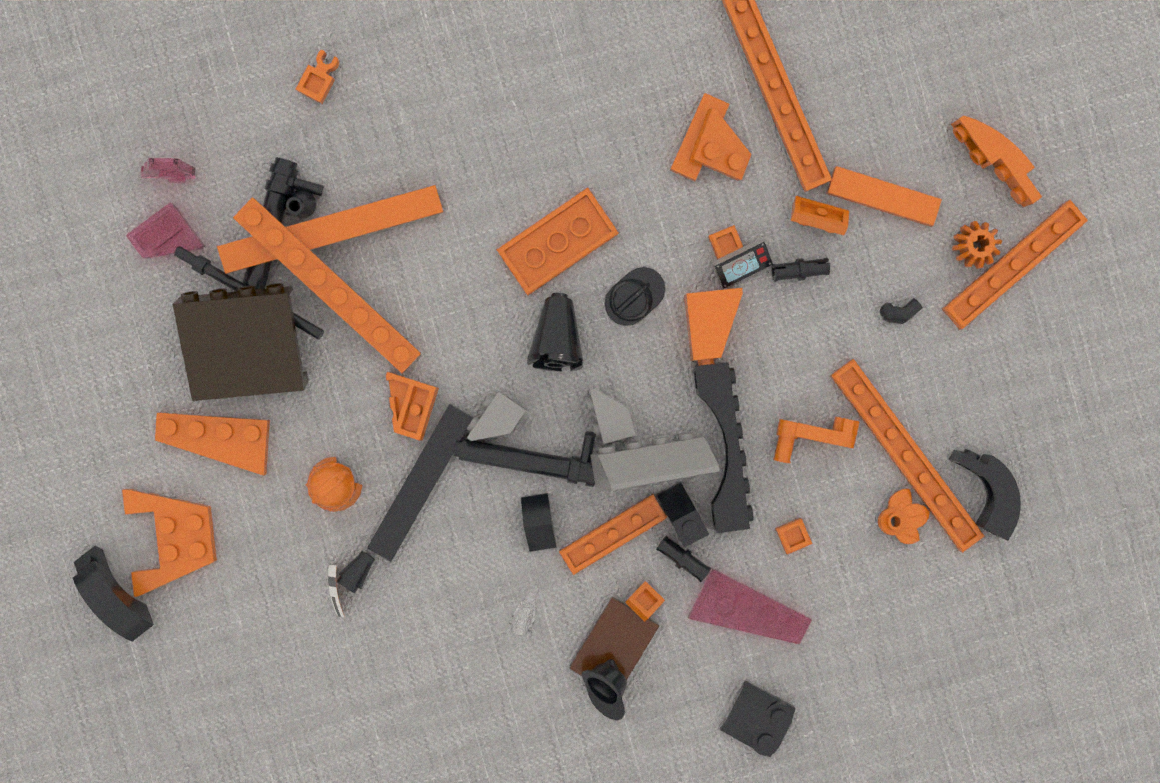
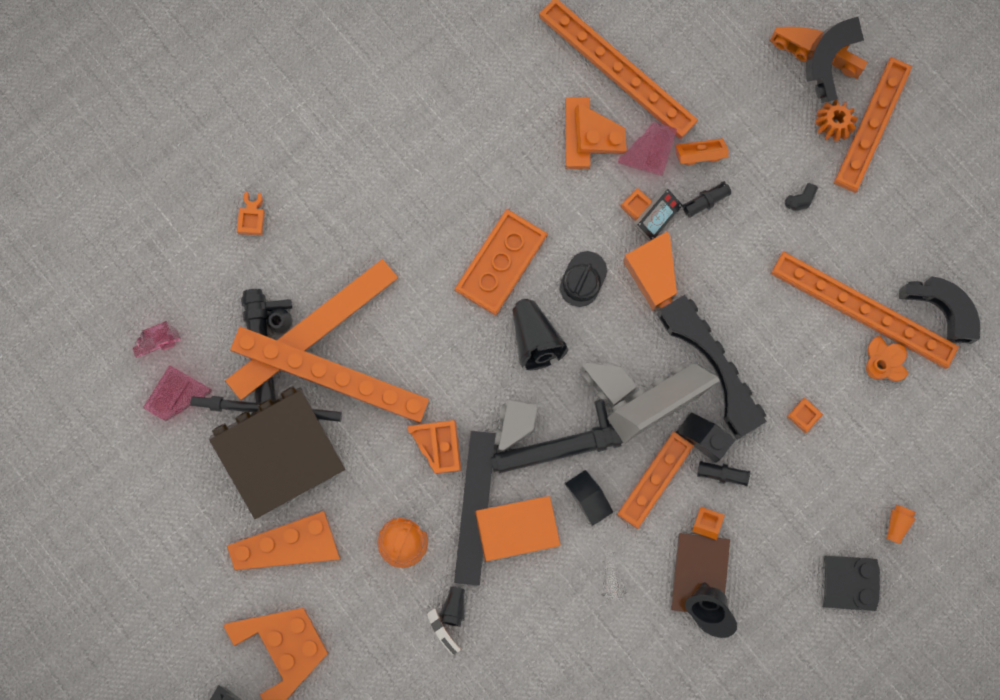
camera: 25 degrees left, 10 degrees down
(452, 523) = (517, 528): none -> orange tile
(742, 608) = (790, 494): clear pink wing -> none
(767, 191) = (651, 150): none -> clear pink wing
(835, 684) = (900, 523): none -> orange cone
(842, 434) = (803, 315): orange beam -> none
(884, 196) = (744, 116): orange tile -> none
(1001, 165) = (823, 52): none -> black arch

